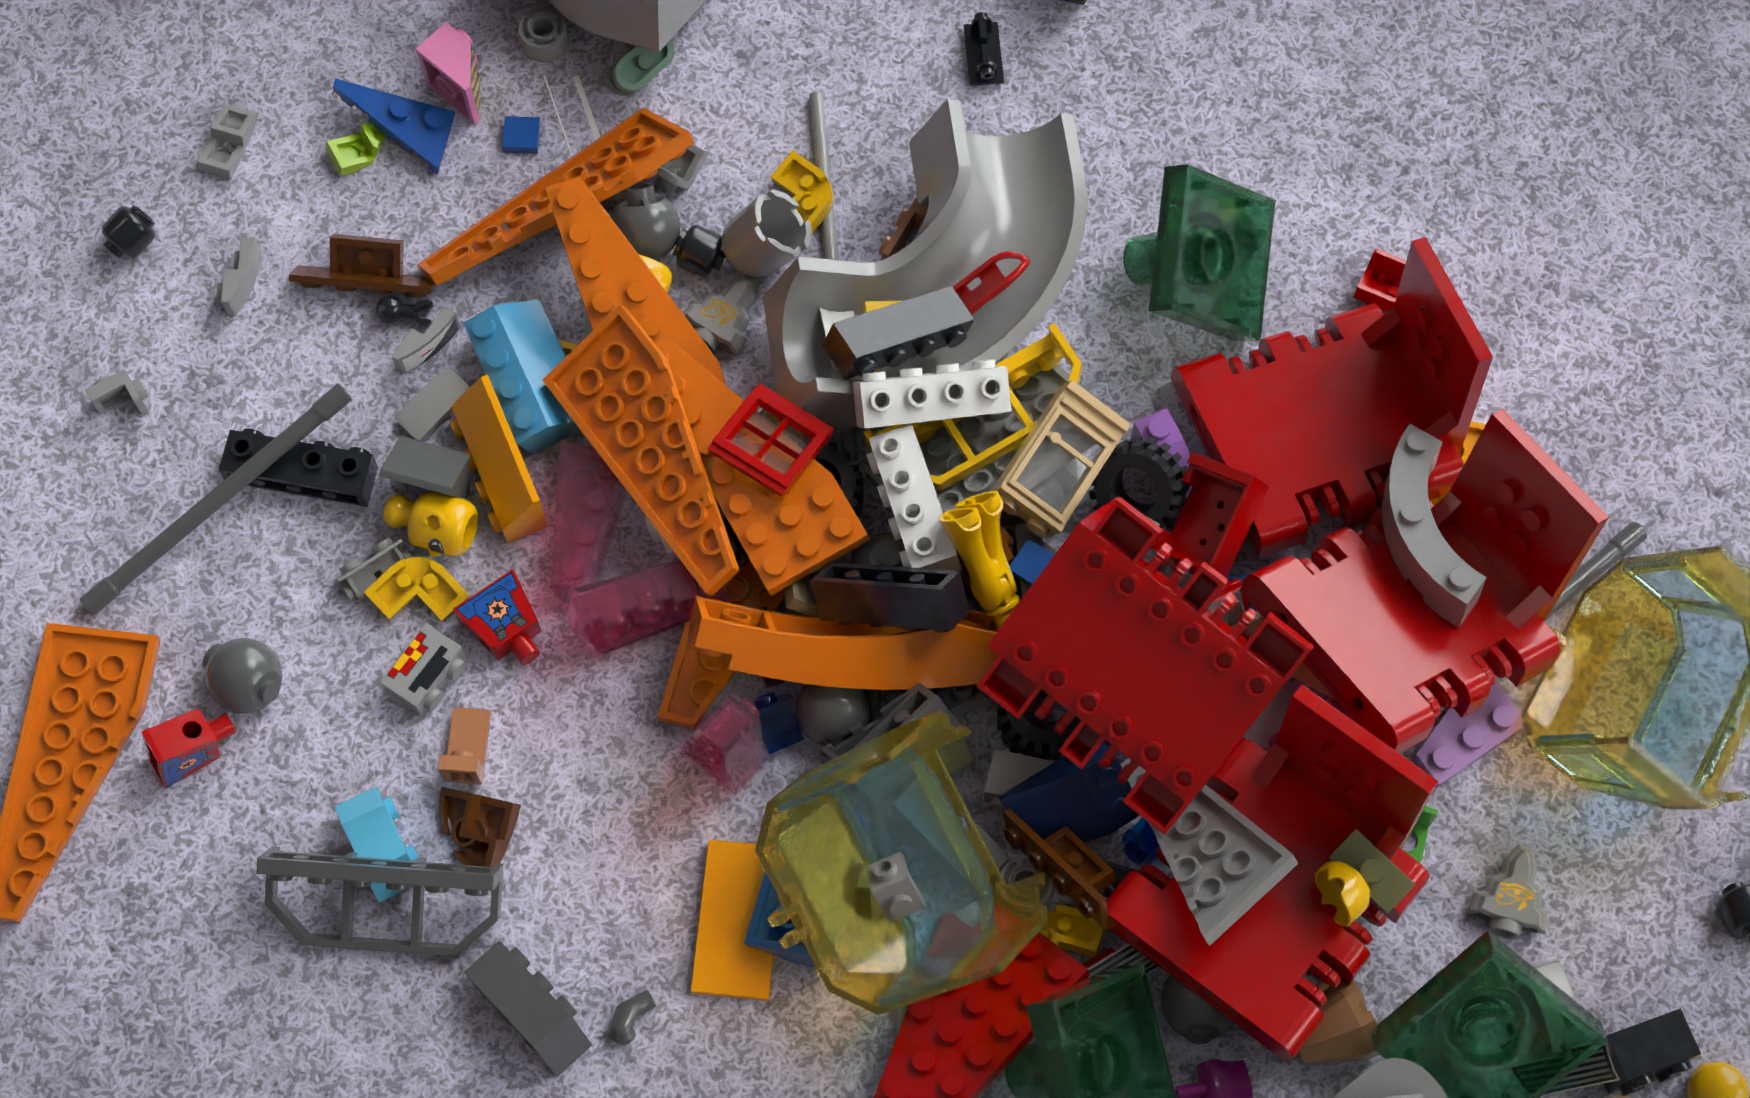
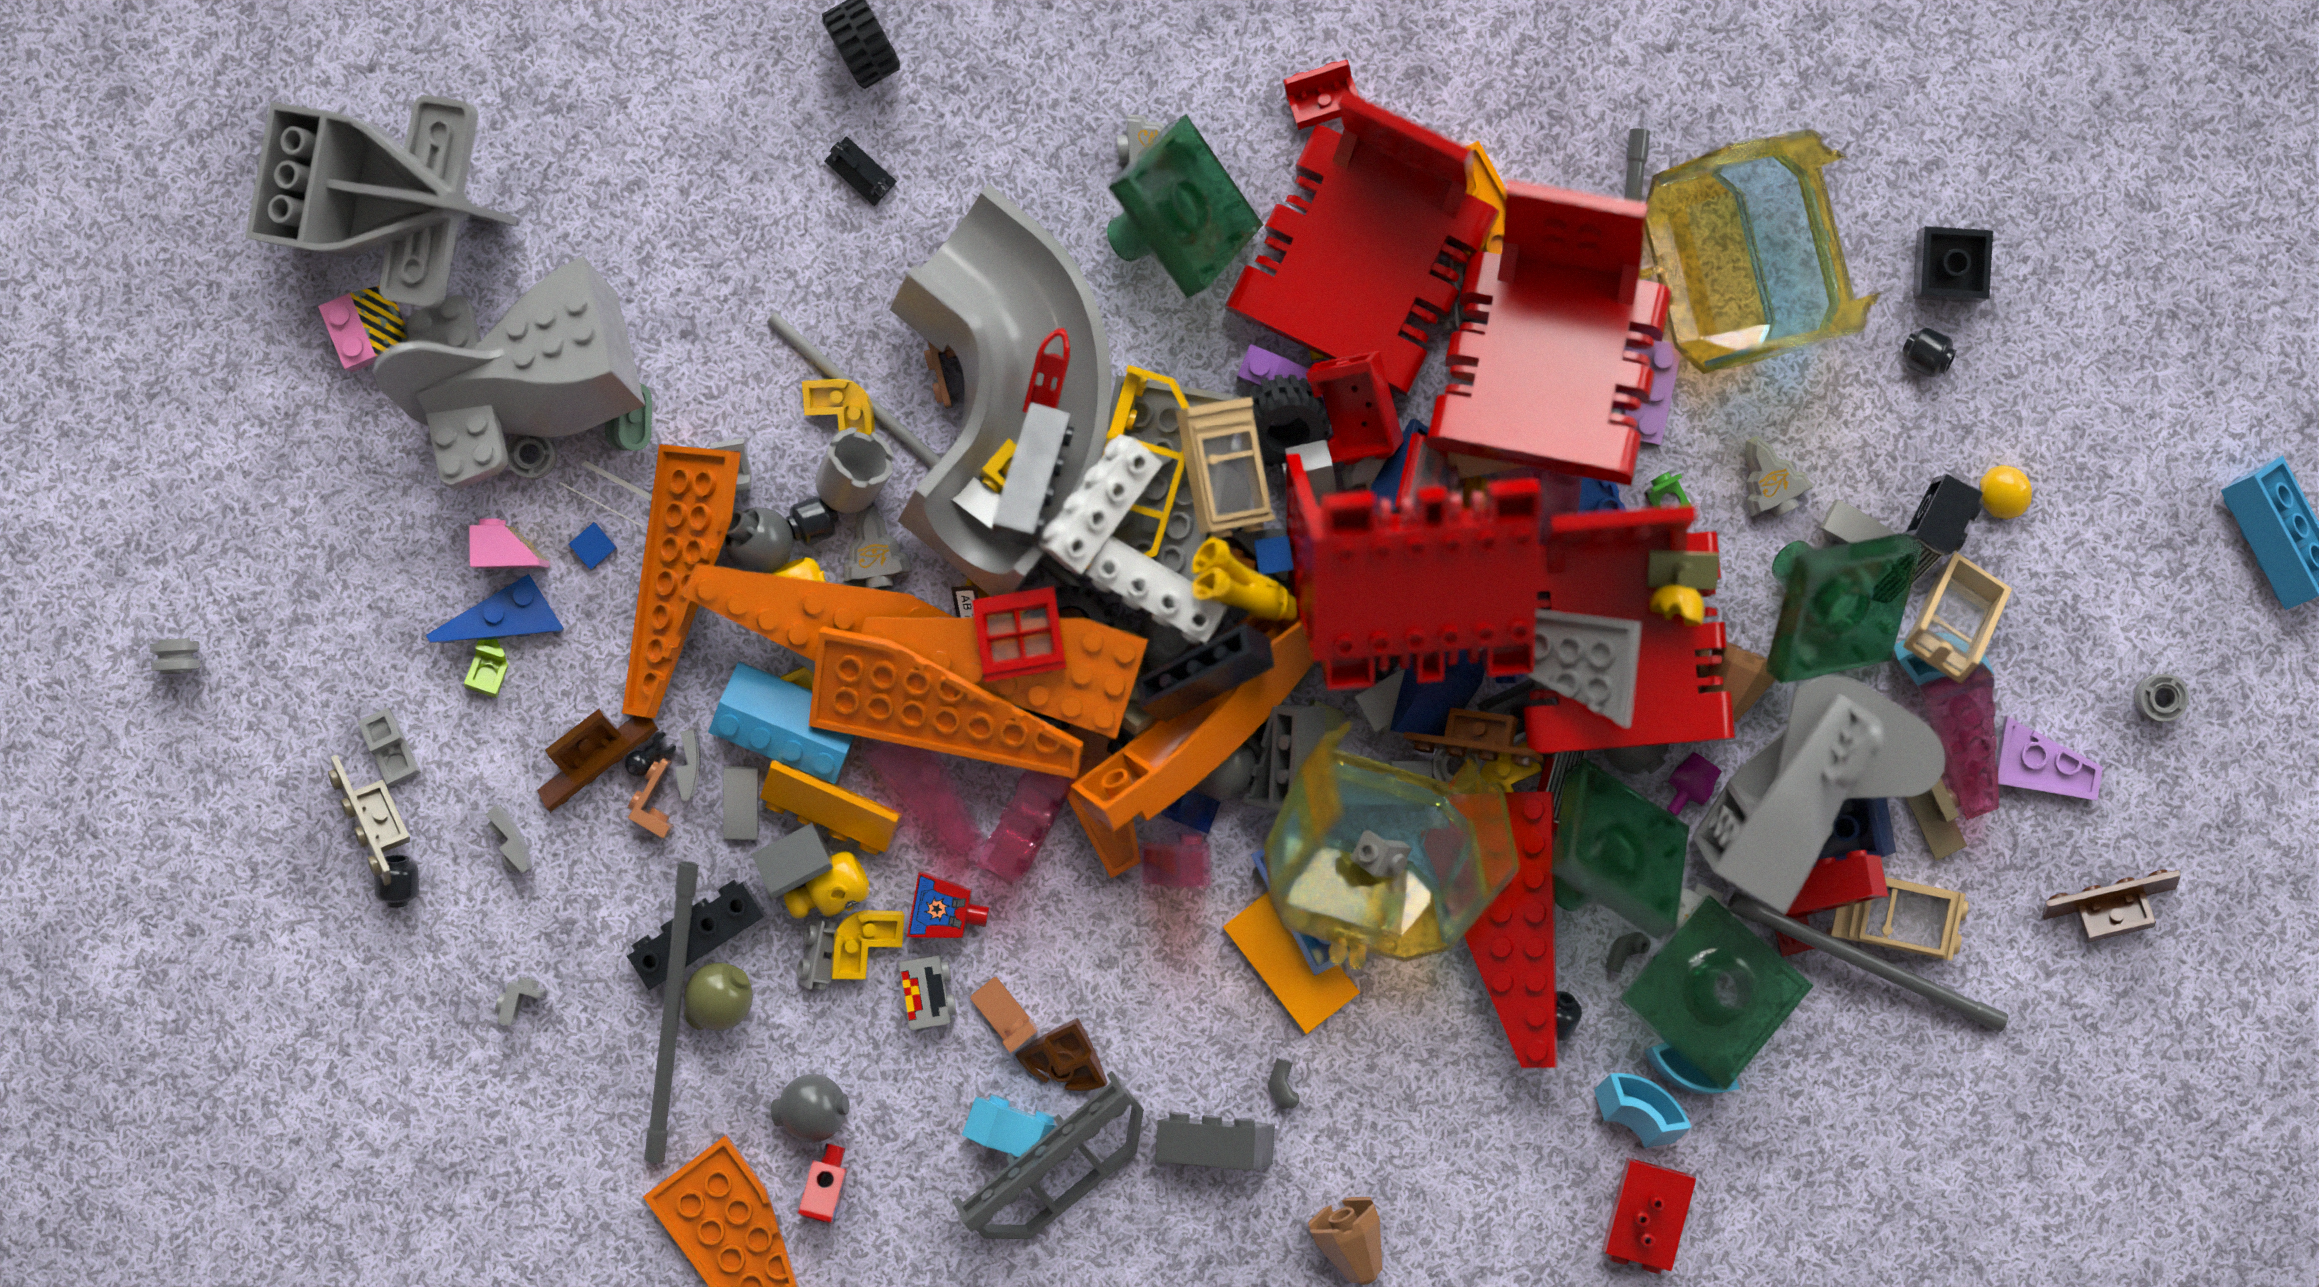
camera: 40 degrees left, 20 degrees up
(161, 172) = (375, 816): none -> bracket
(263, 523) = (717, 997): none -> olive brick
(363, 335) = (655, 819): none -> nougat bracket
(1413, 537) = (1506, 302): light grey brick -> none

